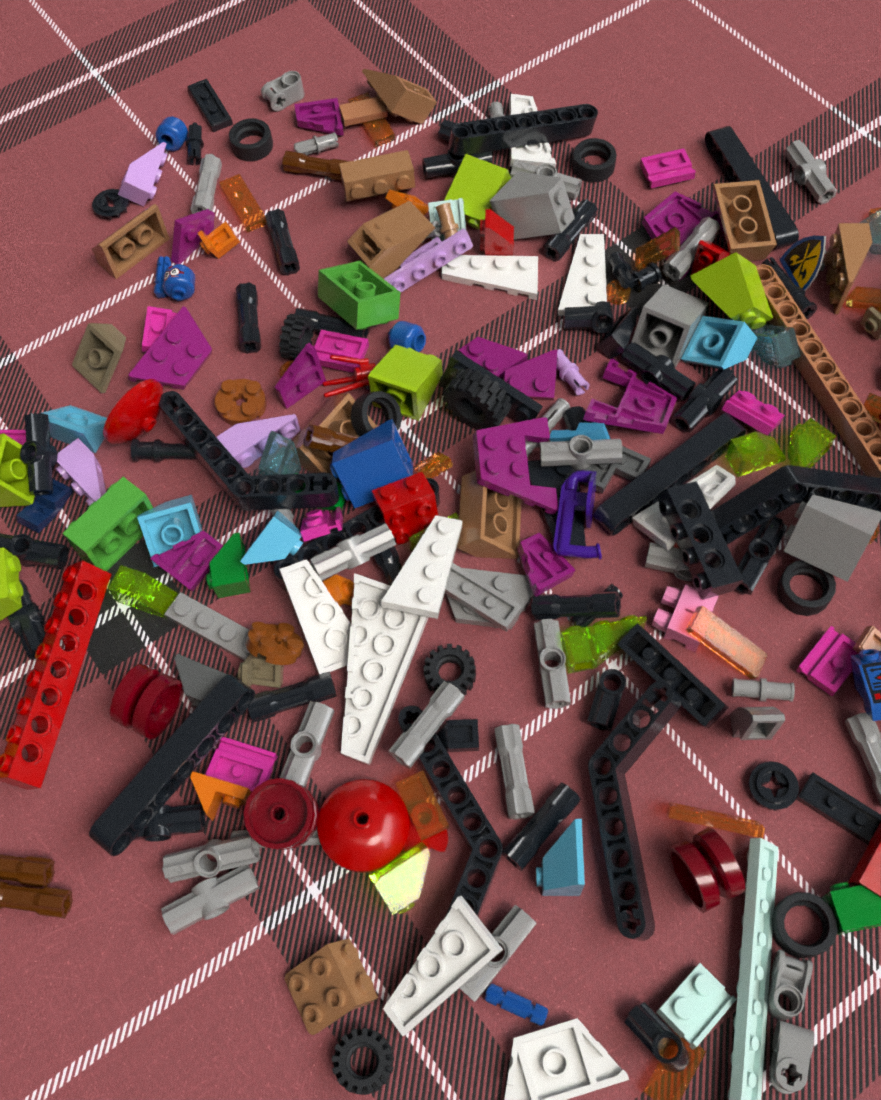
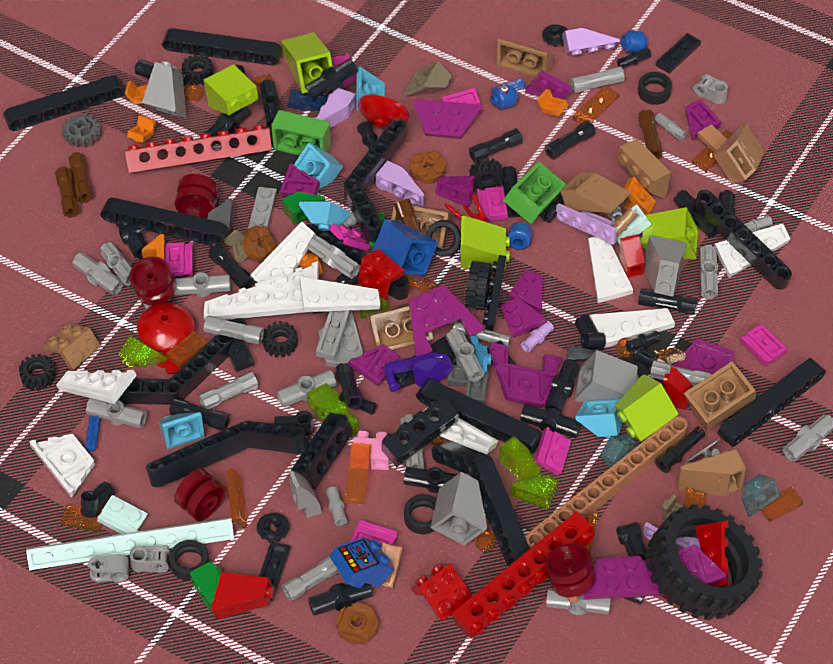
camera: 65 degrees right, 10 degrees down
(141, 591) = (267, 168): clear neon green slope -> none
(279, 456) = (385, 198): clear light blue slope -> none
(594, 147) = (744, 307): black tyre -> none

